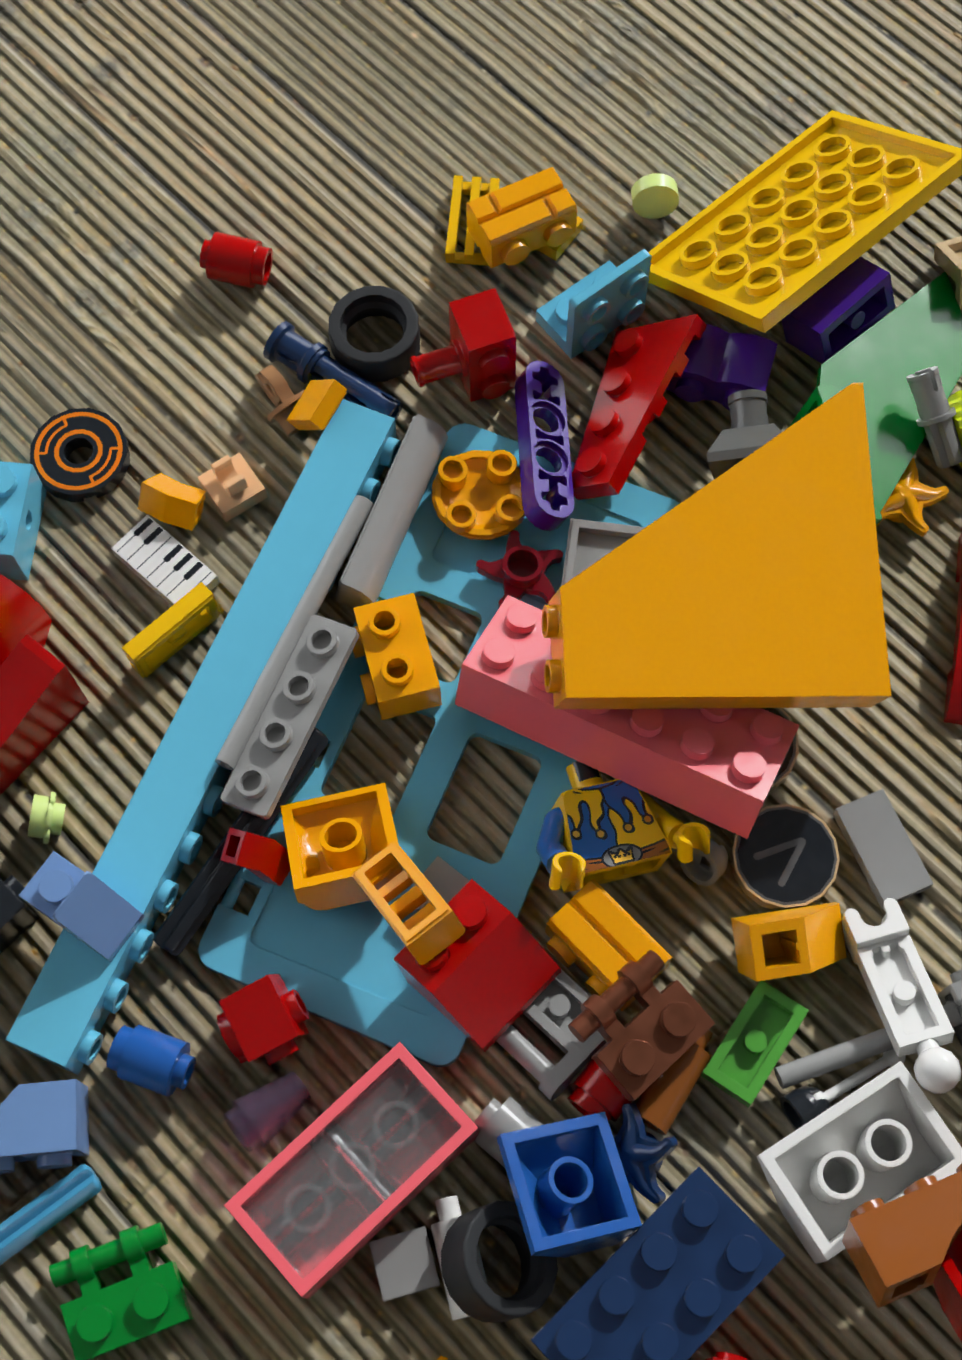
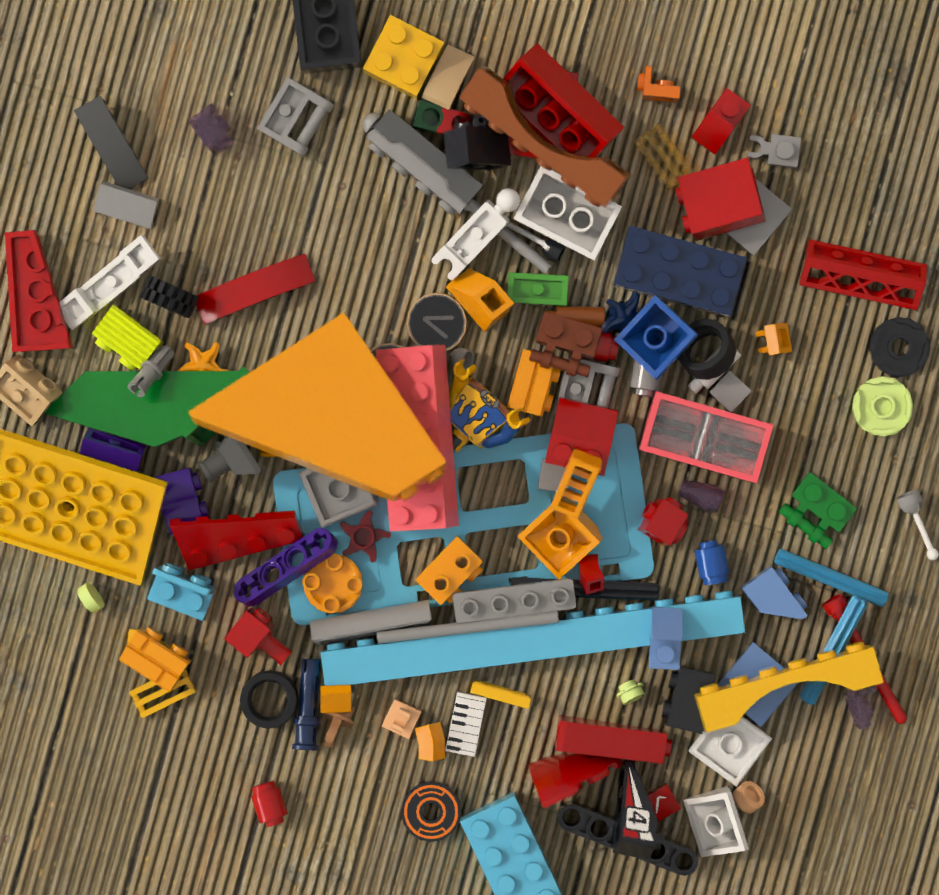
camera: 120 degrees left, 20 degrees up
(882, 848) = (403, 278): light grey tile -> none

